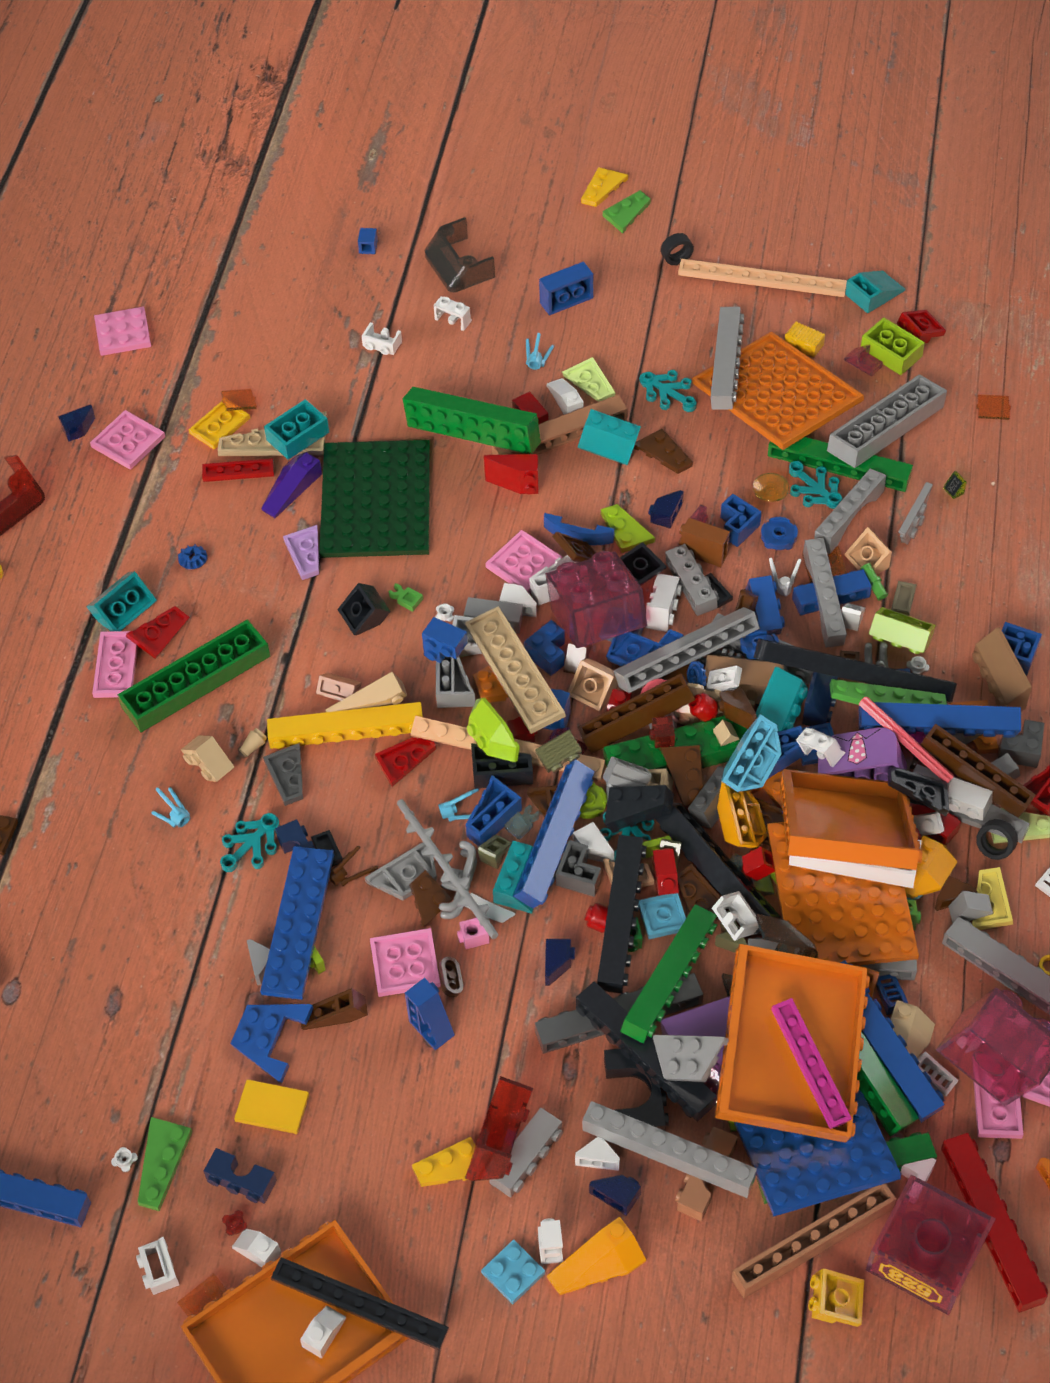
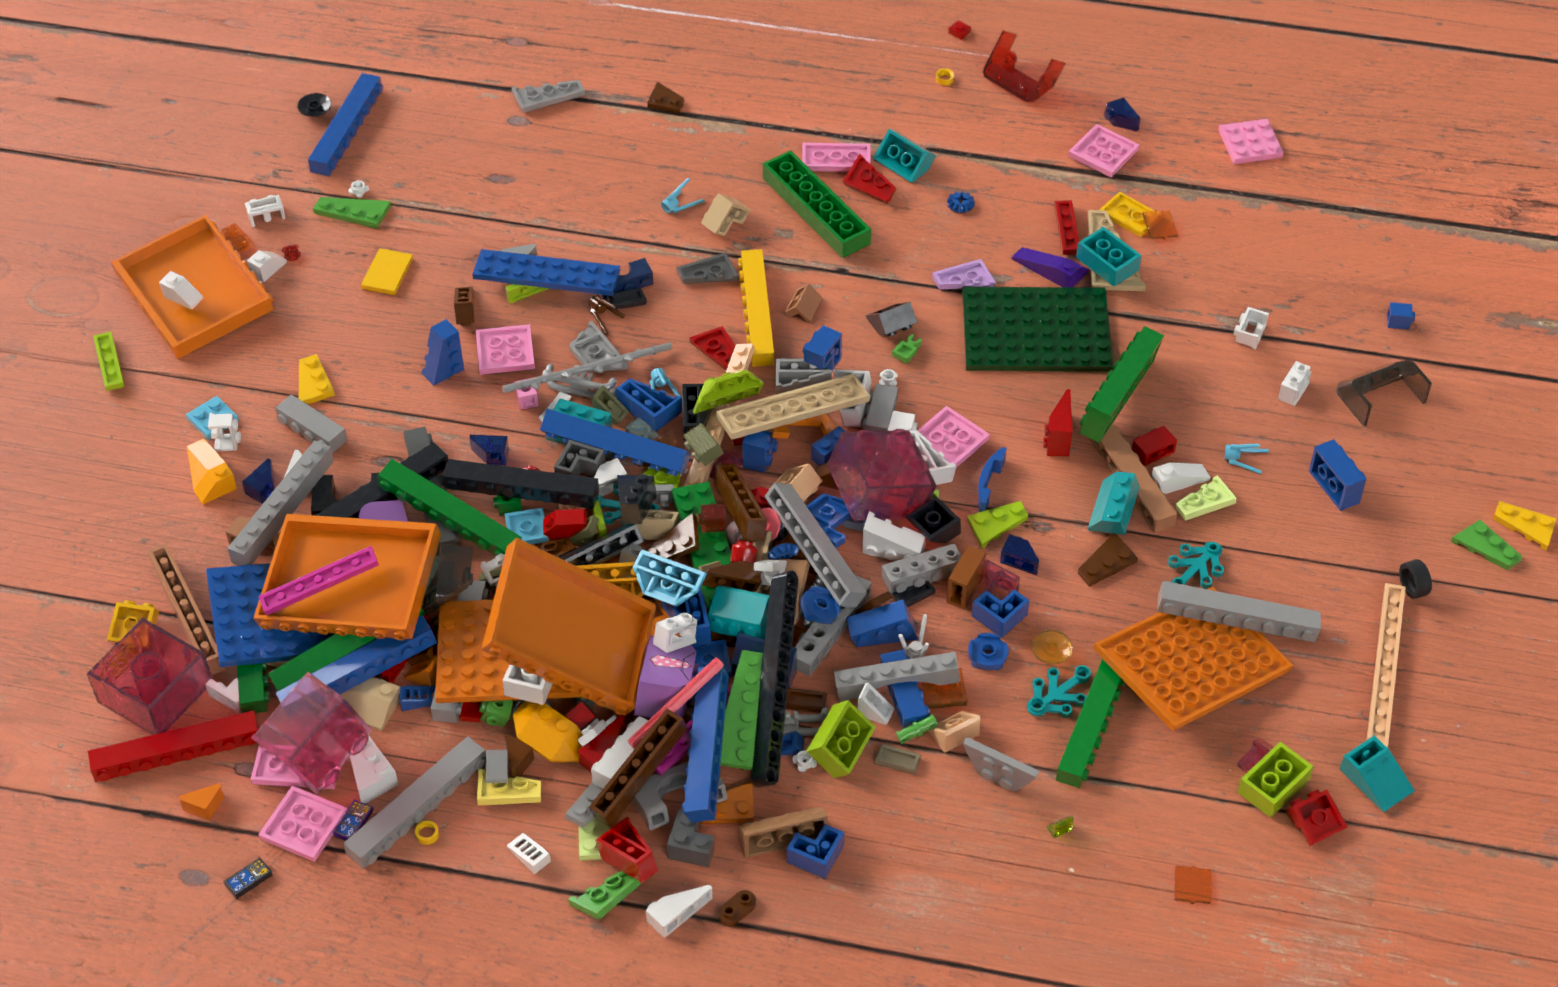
camera: 90 degrees right, 5 degrees down
(251, 840) = (655, 260): teal plant -> none
(253, 741) = (741, 245): tan cone -> none
(255, 1185) = (319, 260): dark blue arch -> none
(260, 1031) = (451, 260): blue wing -> none
(360, 1303) = (197, 314): black tile -> none
(382, 692) = (783, 323): tan wedge -> none
(428, 896) = (567, 358): reddish brown wing -> none
(450, 980) = (485, 375): reddish brown plate -> none
(499, 1131) = (314, 394): clear red windscreen -> none
(575, 548) = (951, 470): reddish brown tile -> none
(625, 774) = (667, 490): light grey brick -> none
(688, 1056) = (351, 503): light grey wing -> none
(805, 339) = (1284, 697): yellow brick -> none
(865, 491) = (1045, 731): light grey arch -> none
(886, 421) = (1144, 753): light grey brick -> none
(921, 788) = (616, 713): black wing -> none
(990, 851) = (570, 794): black tyre -> none

